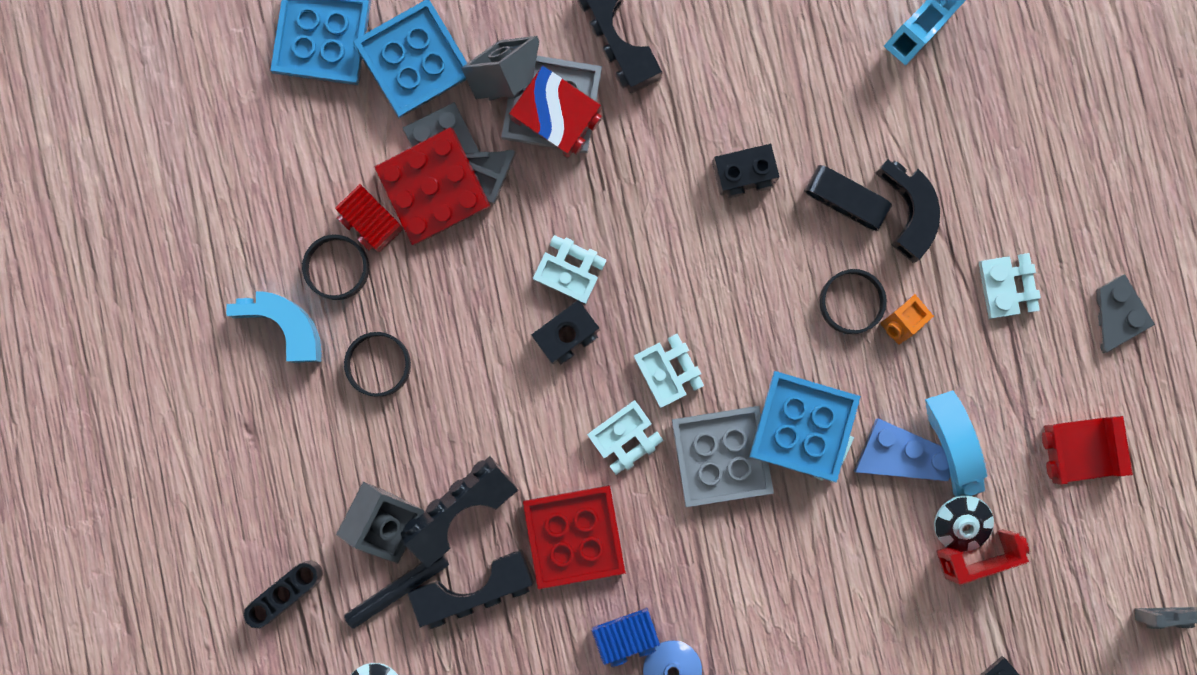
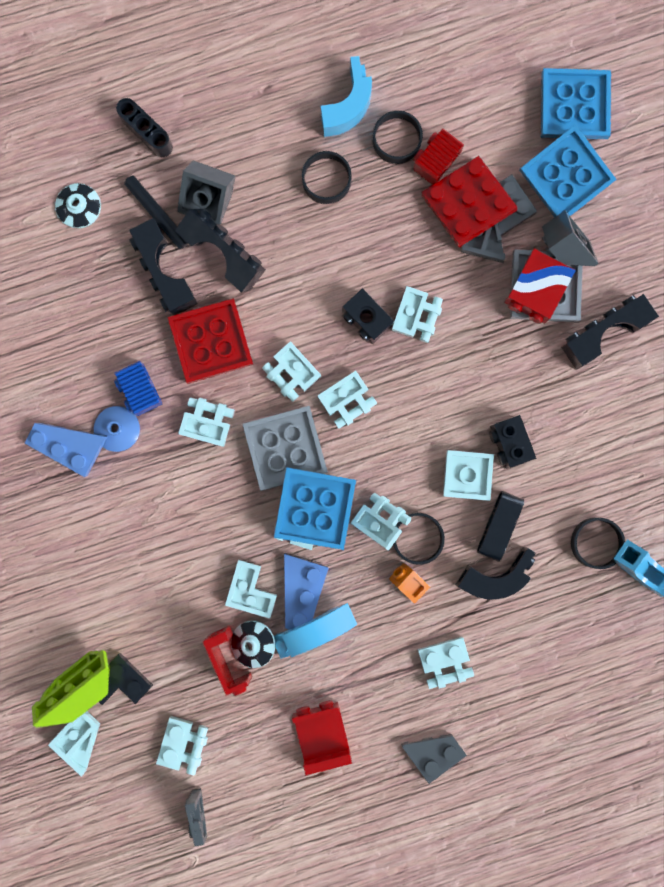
camera: 80 degrees right, 0 degrees up
(686, 556) = (206, 429): none -> light aqua plate
(780, 230) = (468, 475): none -> light aqua plate
(834, 352) = (377, 527): none -> light aqua plate
(862, 103) = (621, 539): none -> black tyre
(903, 526) = (243, 592): none -> light aqua plate
(1076, 635) = (175, 742): none -> light aqua plate

